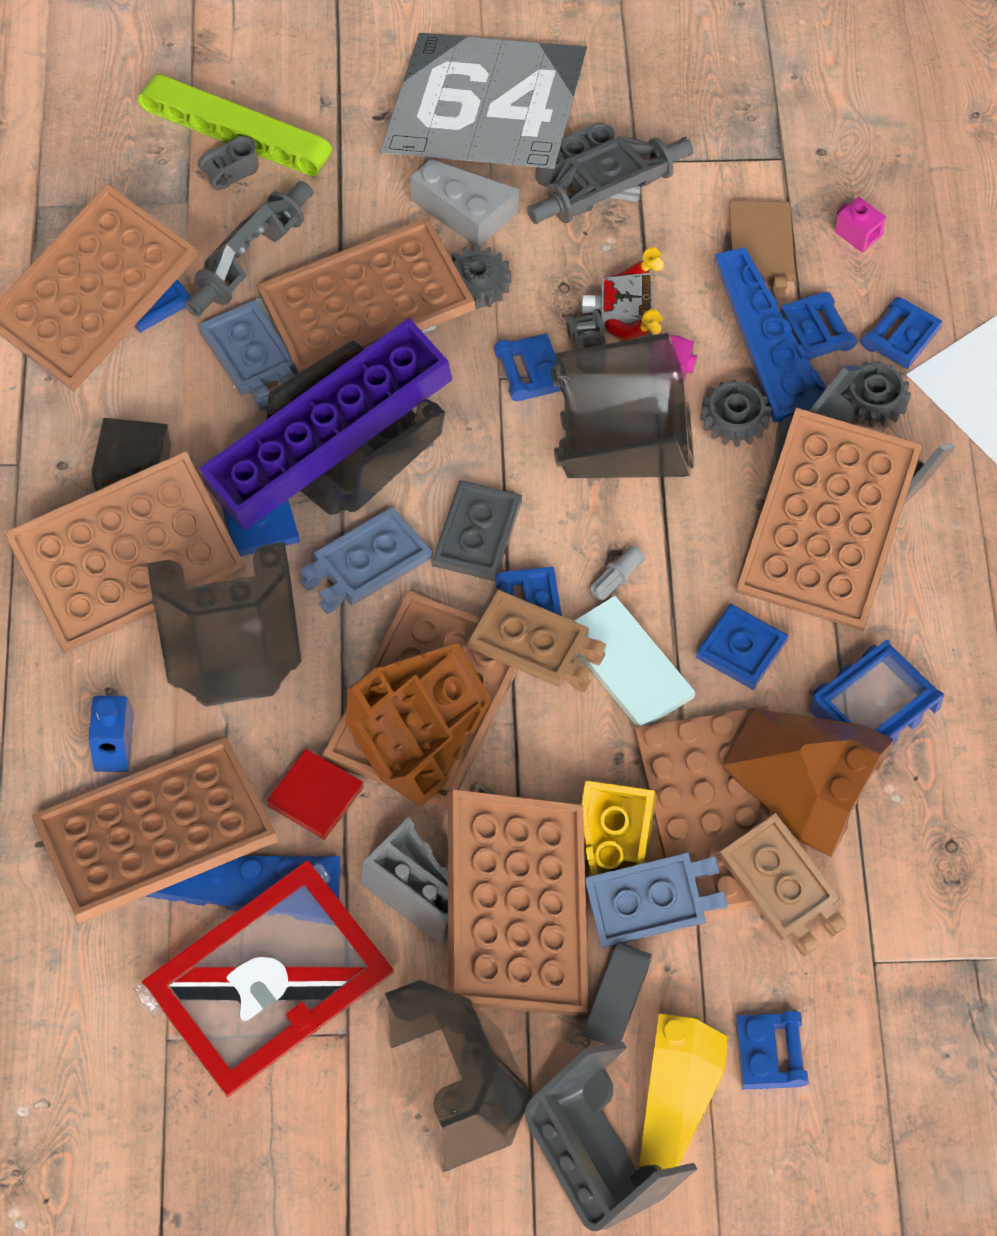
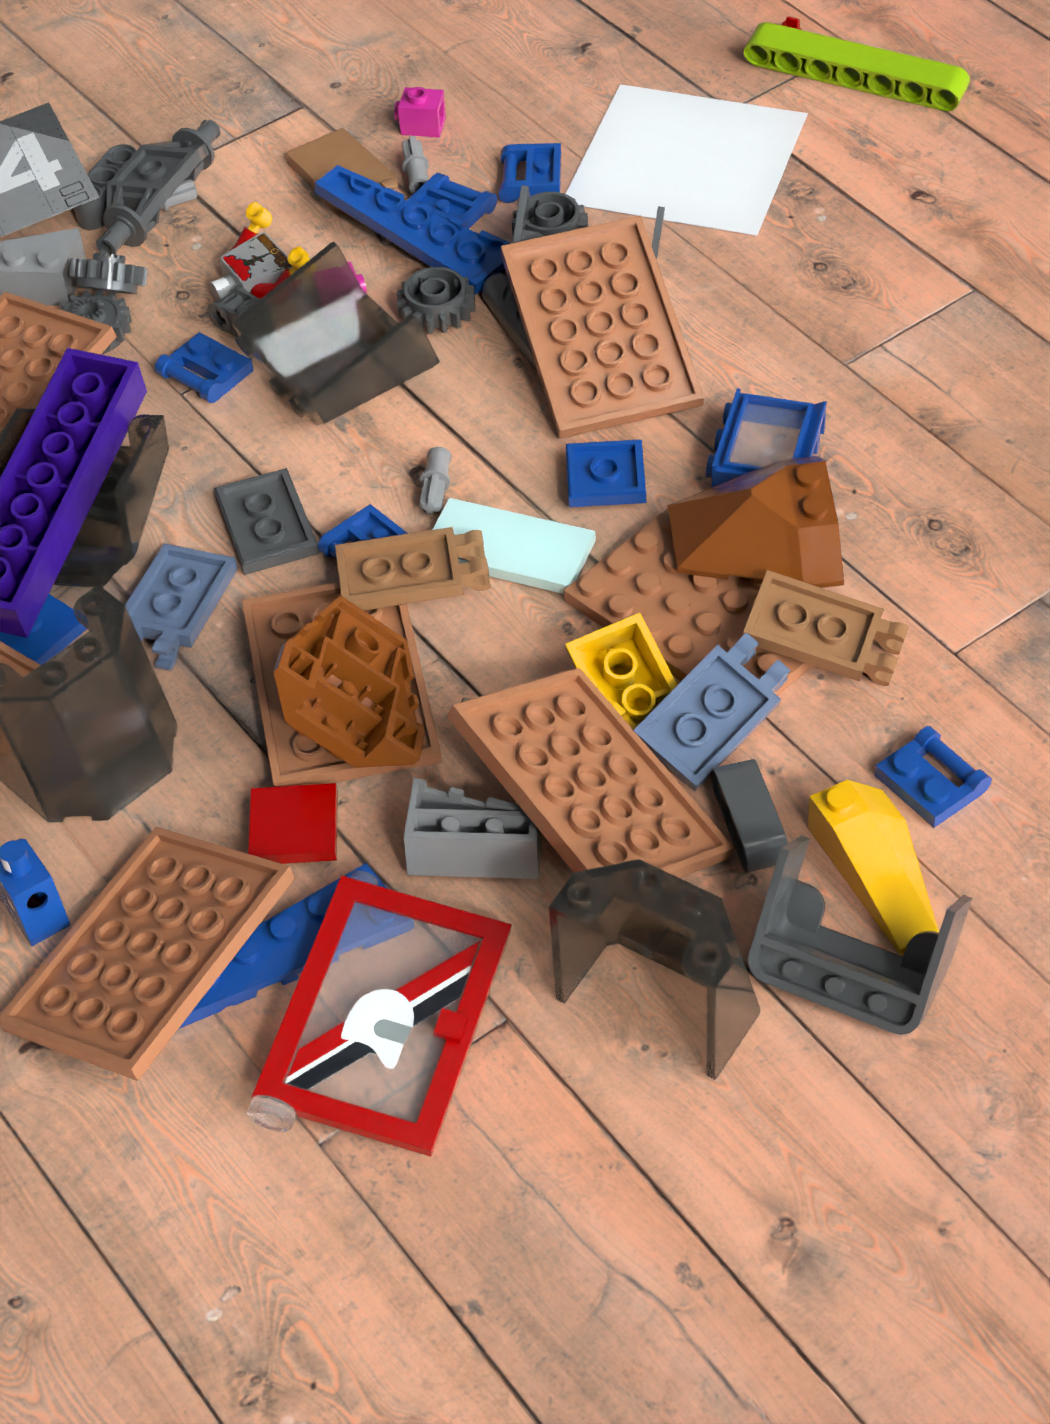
camera: 30 degrees left, 10 degrees down
(513, 243) = (107, 273): none -> dark grey gear
(818, 271) = (414, 163): none -> light grey axle

